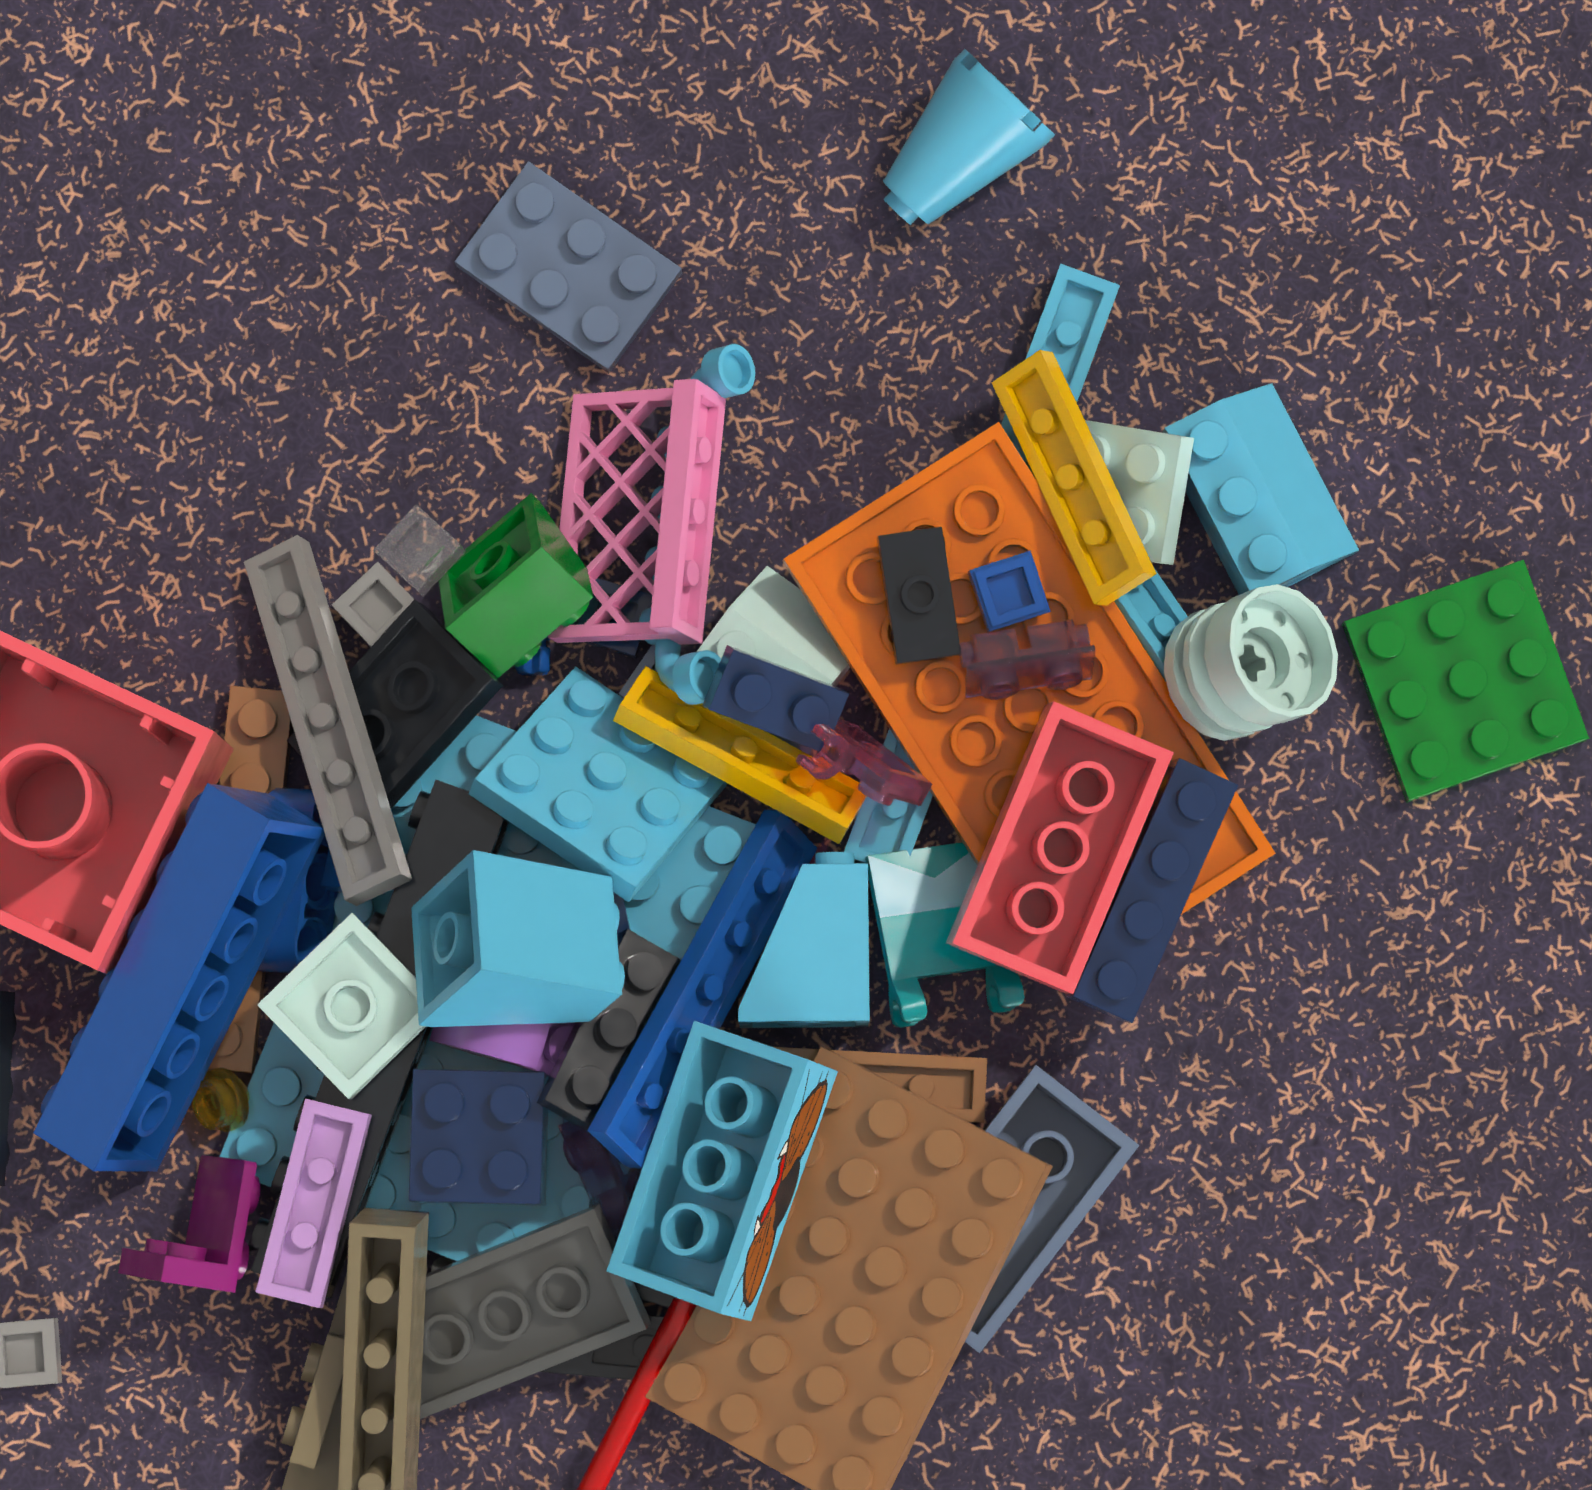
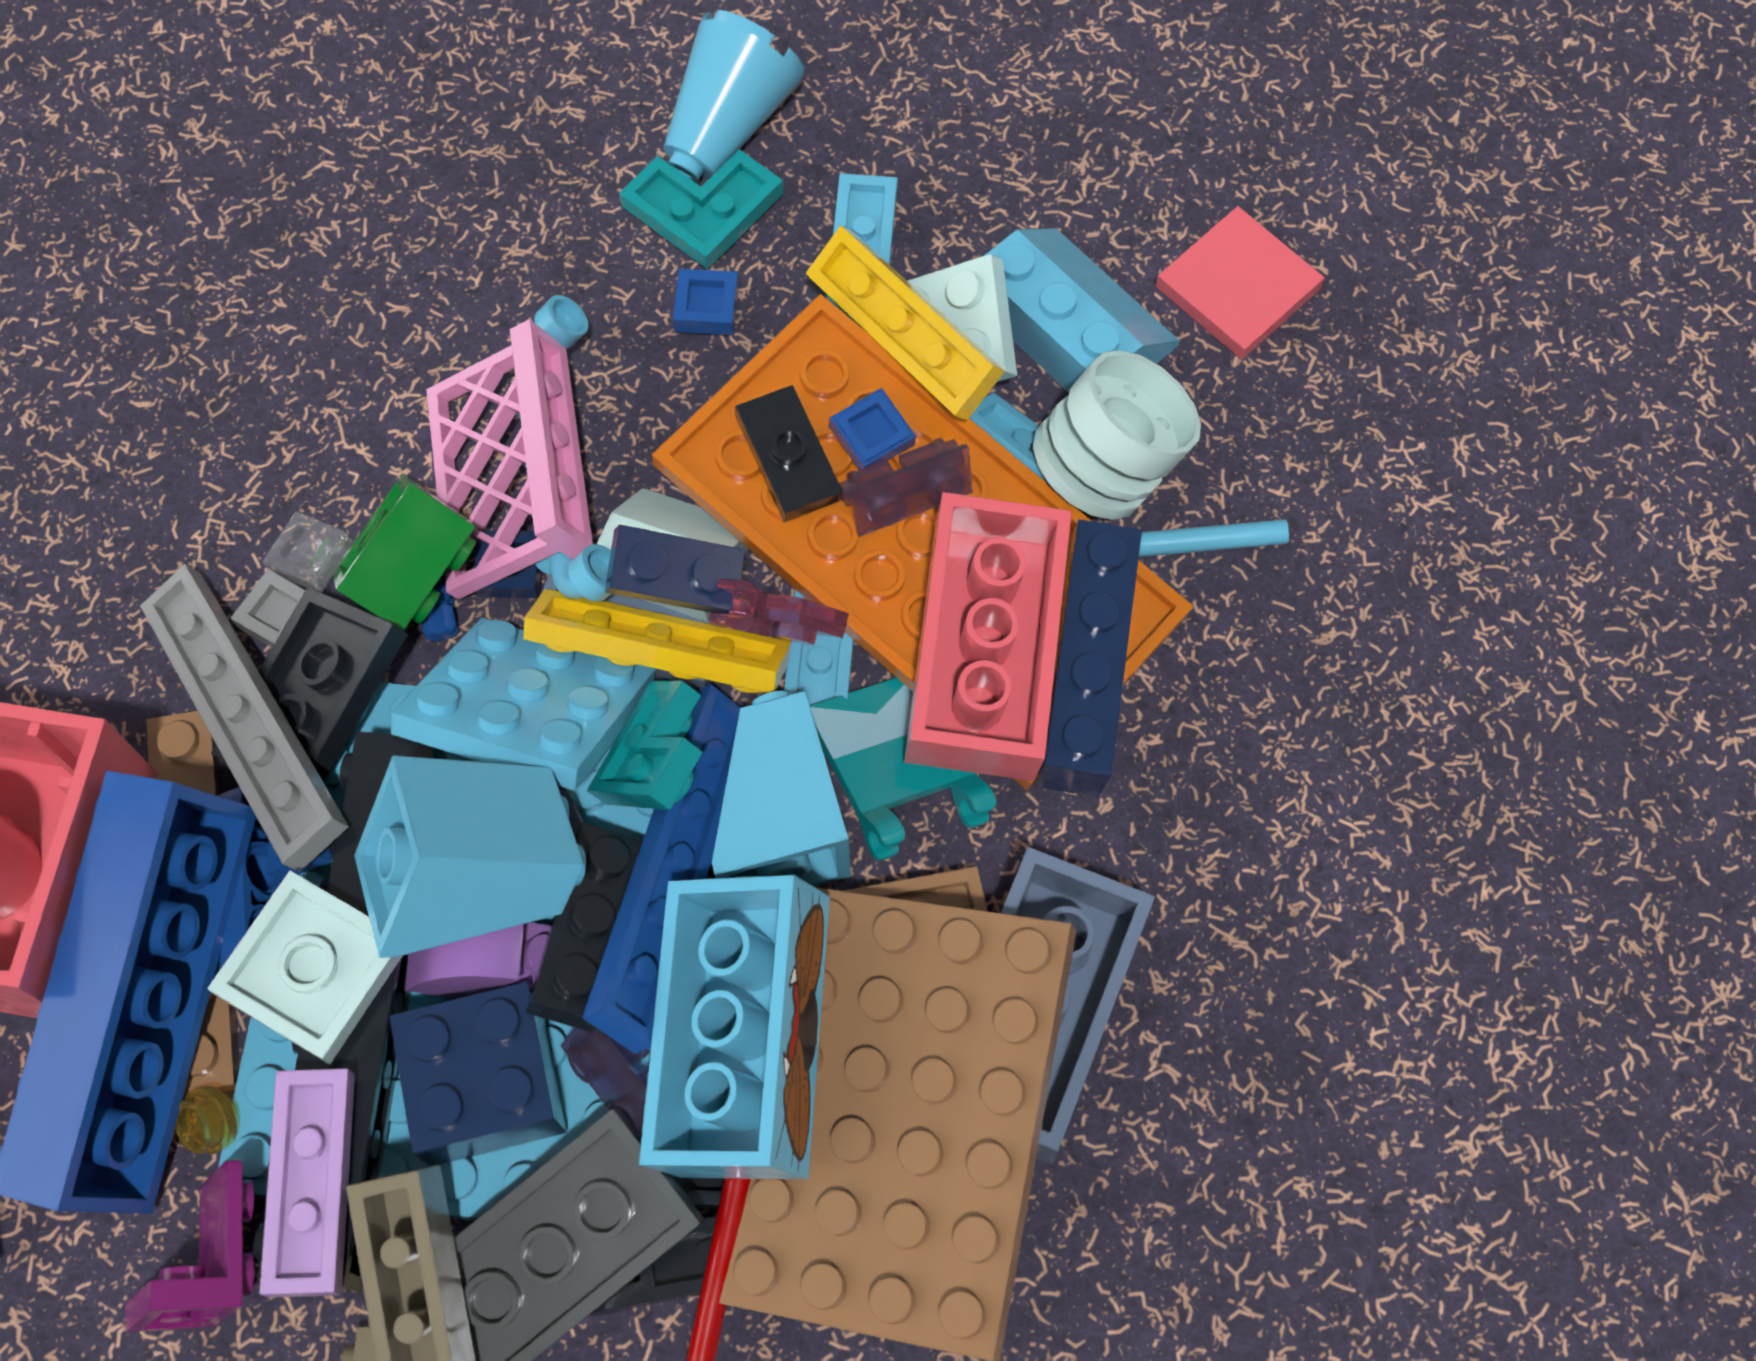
camera: 15 degrees left, 15 degrees down
(568, 267) = (398, 290): sand blue plate -> none
(694, 877) = (650, 757): none -> teal plate
(882, 374) = (706, 302): none -> blue plate
(903, 273) = (705, 217): none -> teal plate
(1307, 776) = (1214, 538): none -> medium azure bar
(1443, 500) = (1239, 282): none -> coral tile
(1465, 681) = (1314, 423): green plate -> none

